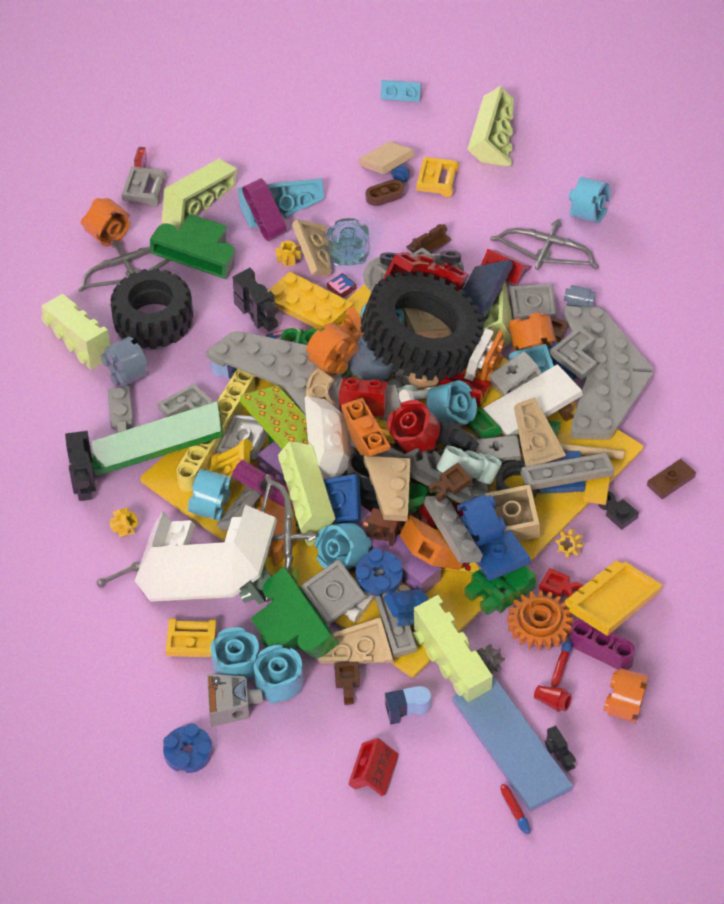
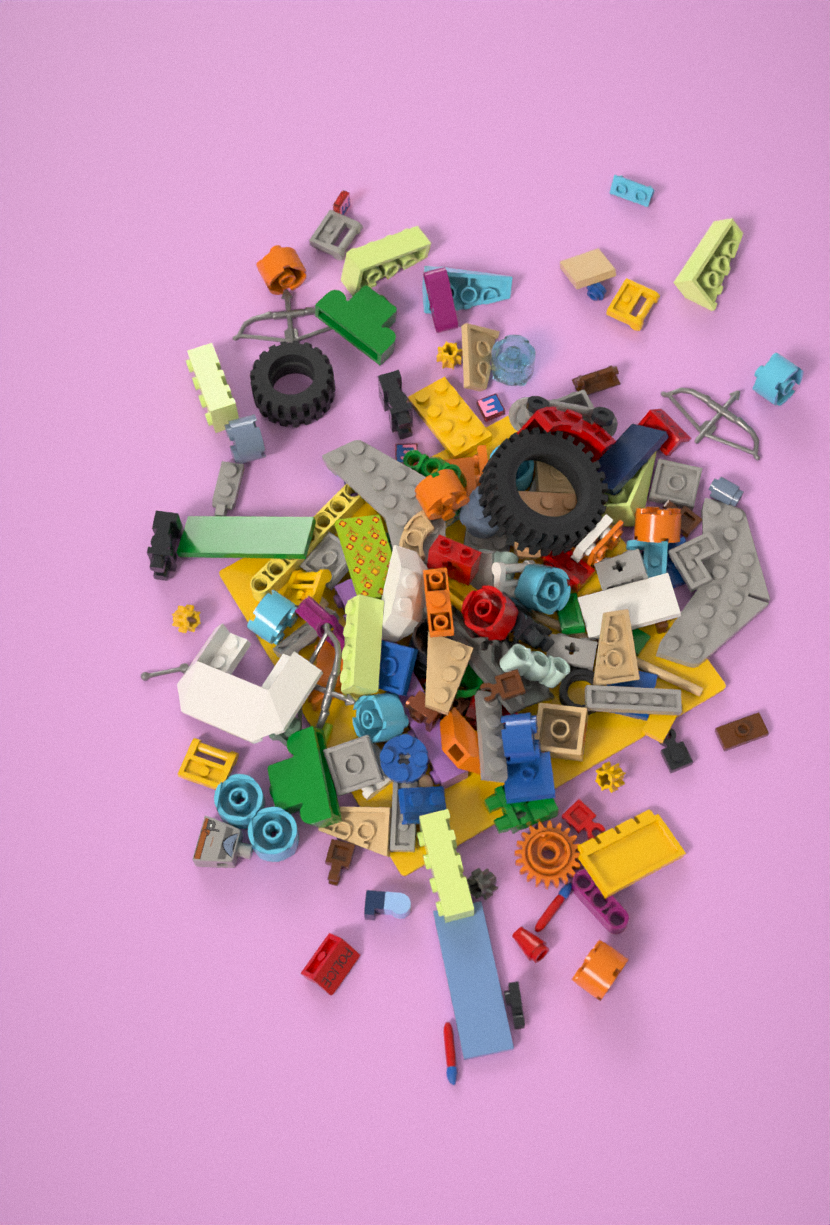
camera: 20 degrees right, 15 degrees up
(183, 401) = (293, 497): light grey plate -> none
(187, 736) = (176, 891): blue plate -> none
(384, 192) = (571, 309): reddish brown plate -> none

